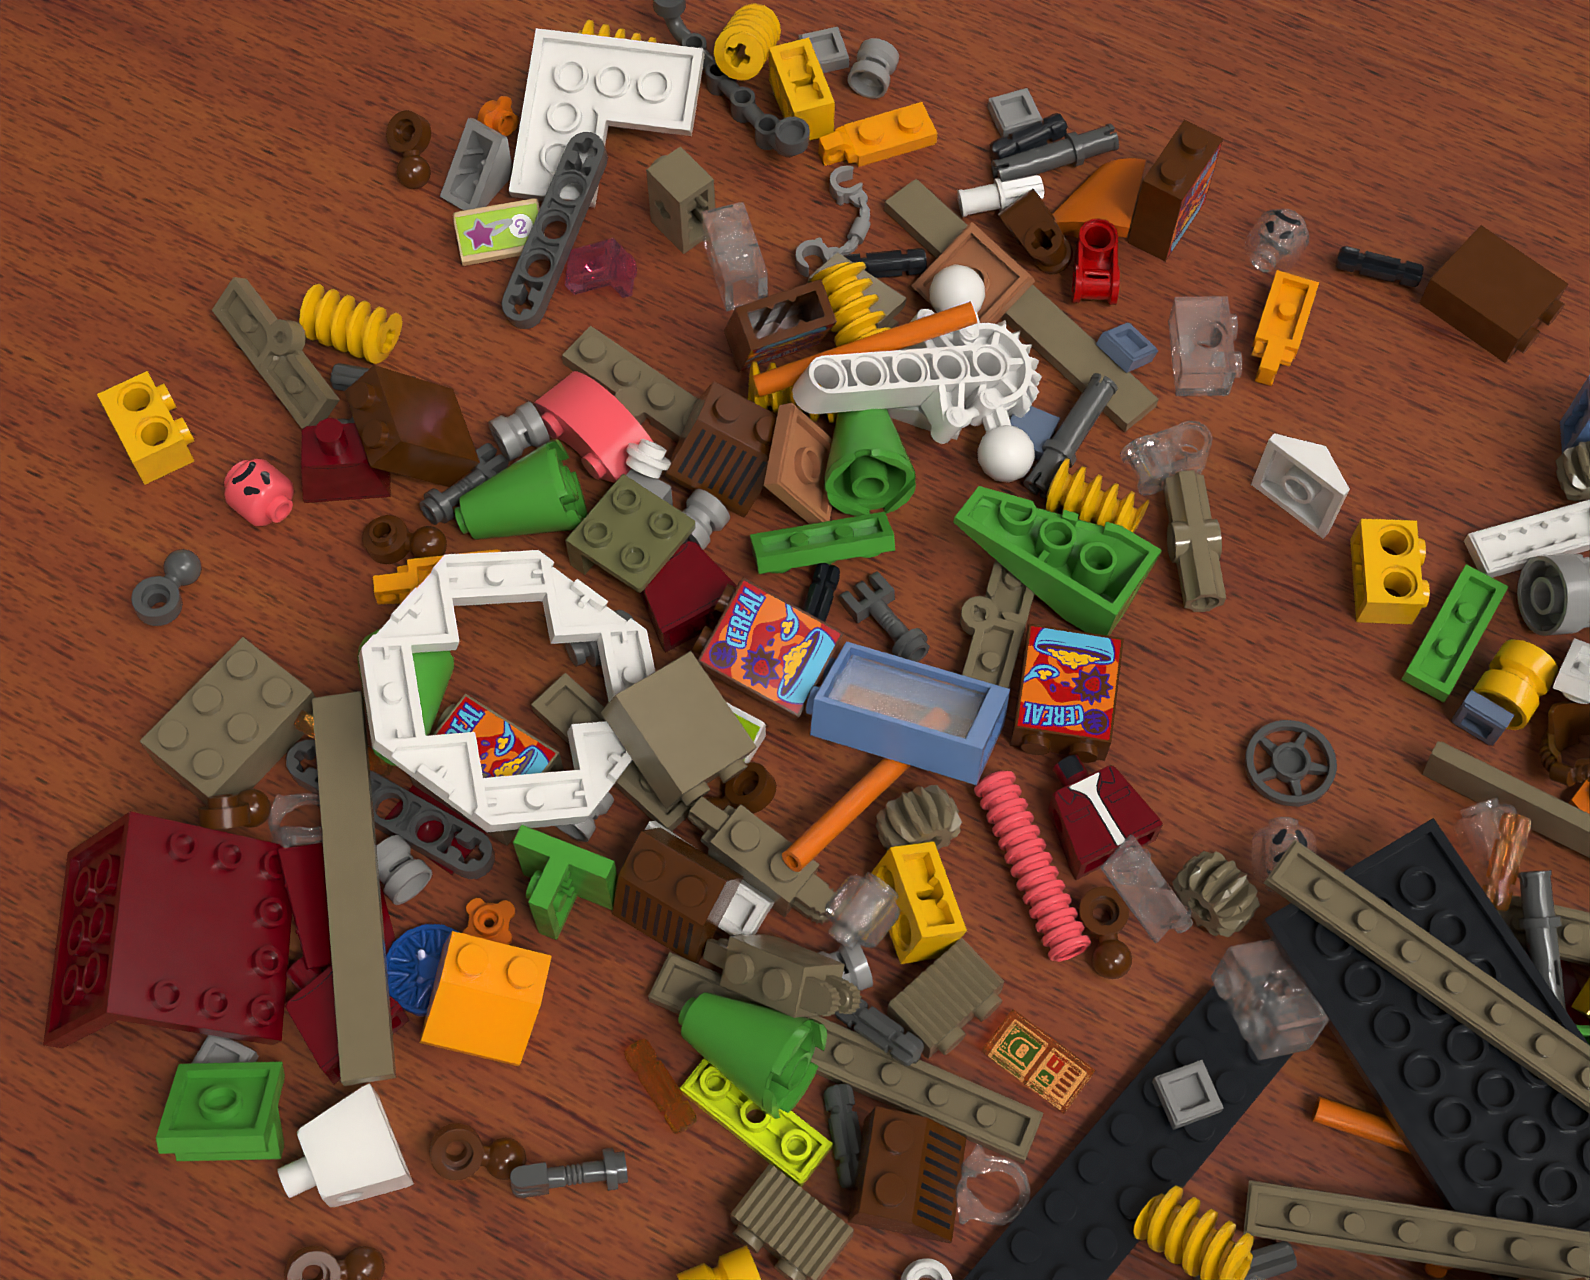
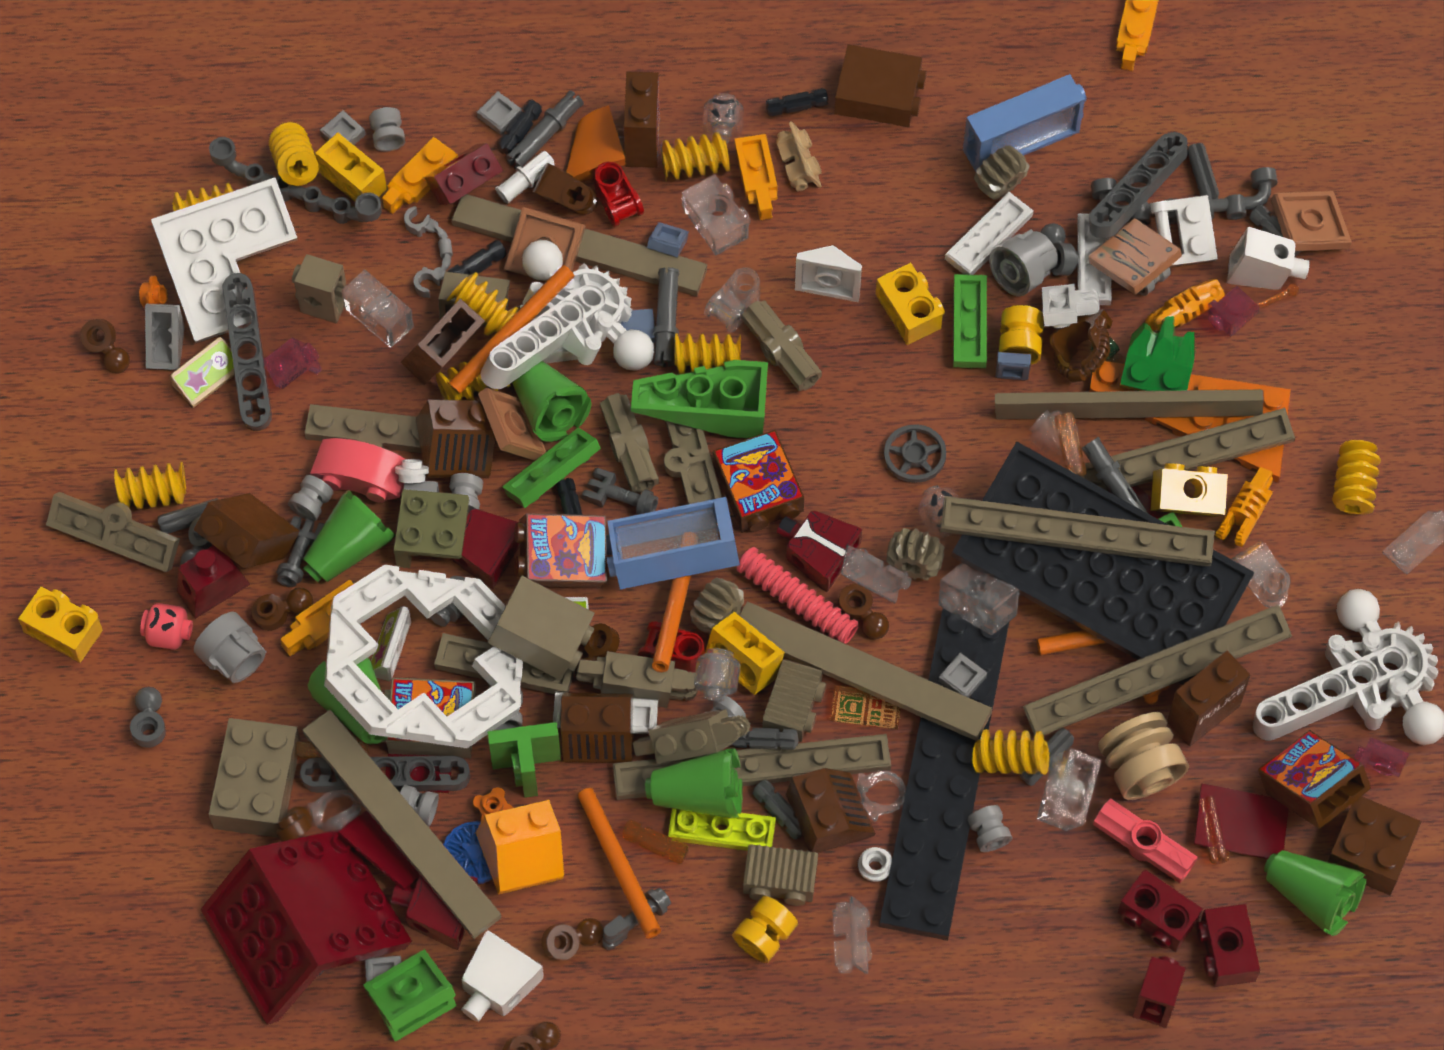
camera: 30 degrees left, 0 degrees up
(306, 554) = (230, 647): none -> light grey piece
(500, 654) = (391, 643): none -> white slope
(592, 1093) = (619, 863): none -> orange piece
(846, 844) = (684, 641): none -> red piece
(928, 154) = (463, 173): none -> dark red brick
(933, 563) = (629, 443): none -> dark tan piece
(1068, 1022) = (870, 673): none -> dark tan tile
(1216, 266) = (694, 155): none -> yellow piece
(1348, 315) = (796, 146): none -> tan hinge

